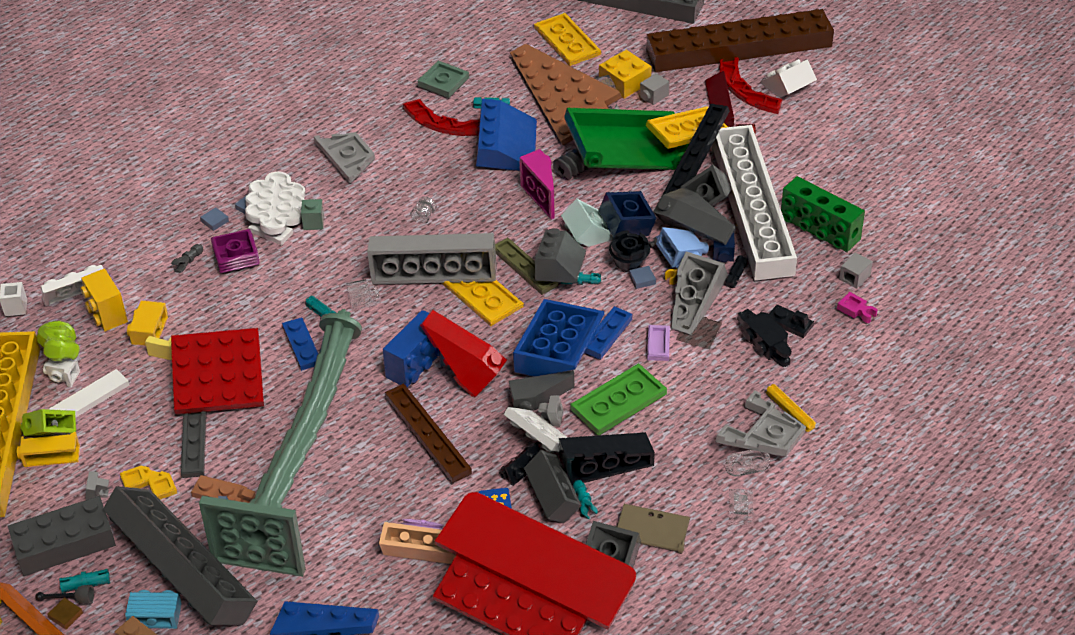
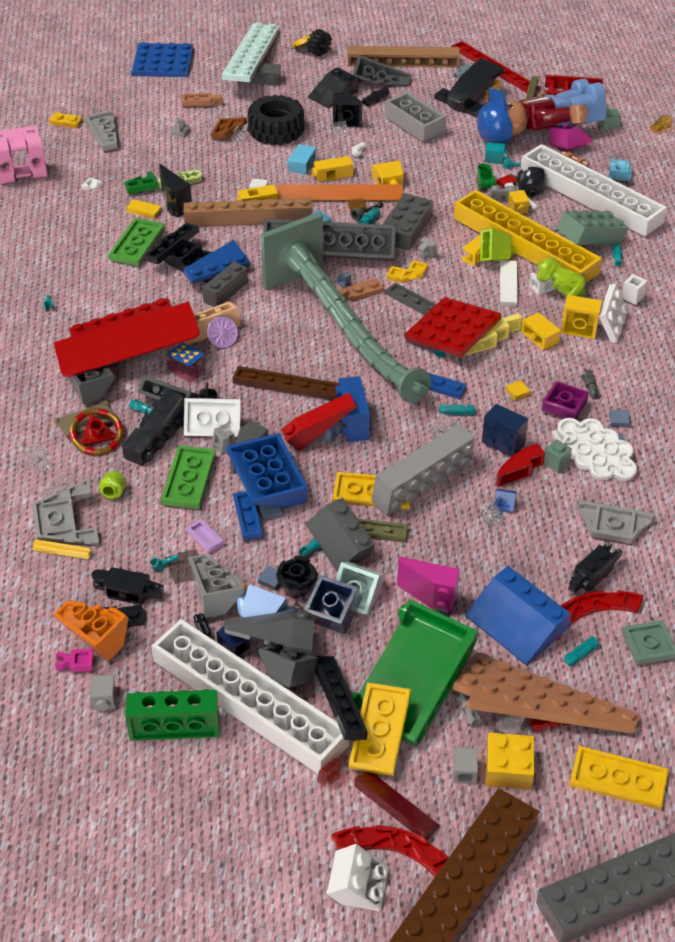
camera: 135 degrees right, 0 degrees up
(249, 293) = (517, 390): none -> yellow tile
(326, 249) = (504, 430): none -> dark blue brick
(347, 588) = (225, 284): none -> dark grey brick
(348, 228) = (520, 465): none -> red slope
(397, 214) = (505, 499): none -> tile
(411, 131) = (594, 568): none -> black hinge
(658, 499) = (96, 432): none -> red piece
(695, 431) = (112, 485): none -> lime head
(720, 344) = (159, 565): none -> teal hand
(825, 313) = (97, 627): none -> orange wedge

